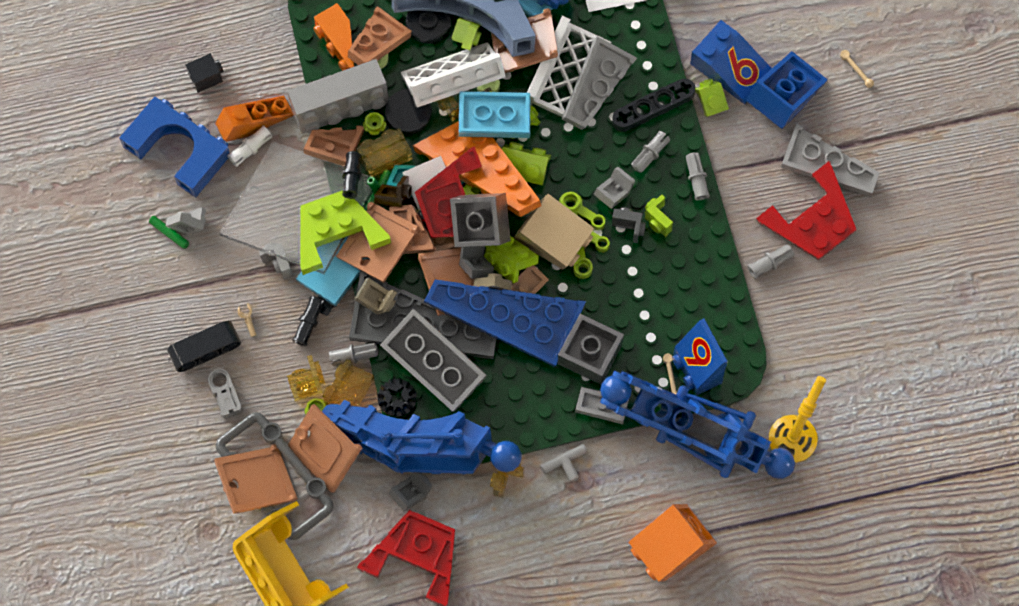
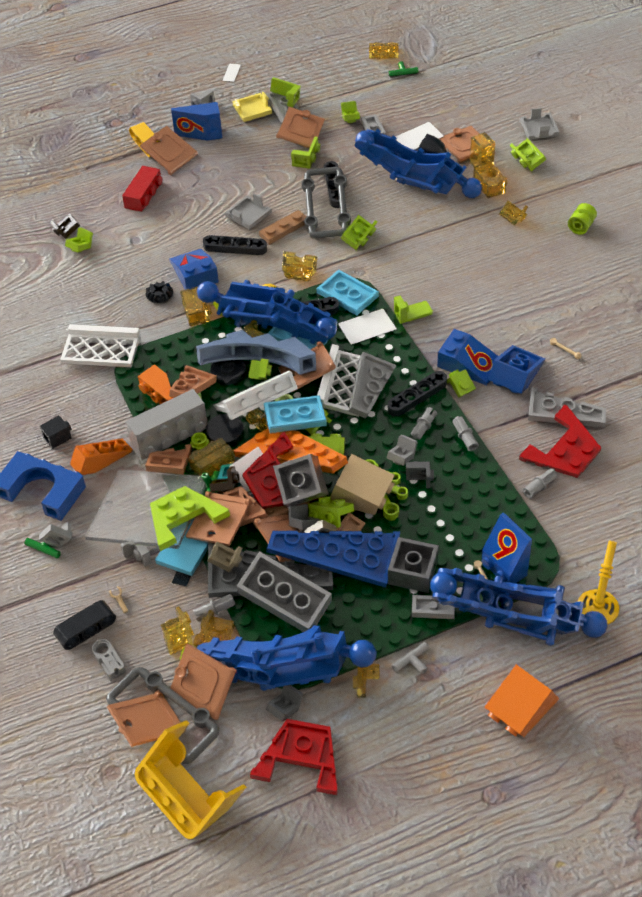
camera: 10 degrees left, 20 degrees down
(249, 146) = (100, 476): white pin -> none
(308, 321) = (170, 591): black pin -> none
(351, 175) = (188, 474): black pin -> none
(398, 407) = (266, 629): black gear -> none
(658, 220) = (441, 465): lime bracket -> none

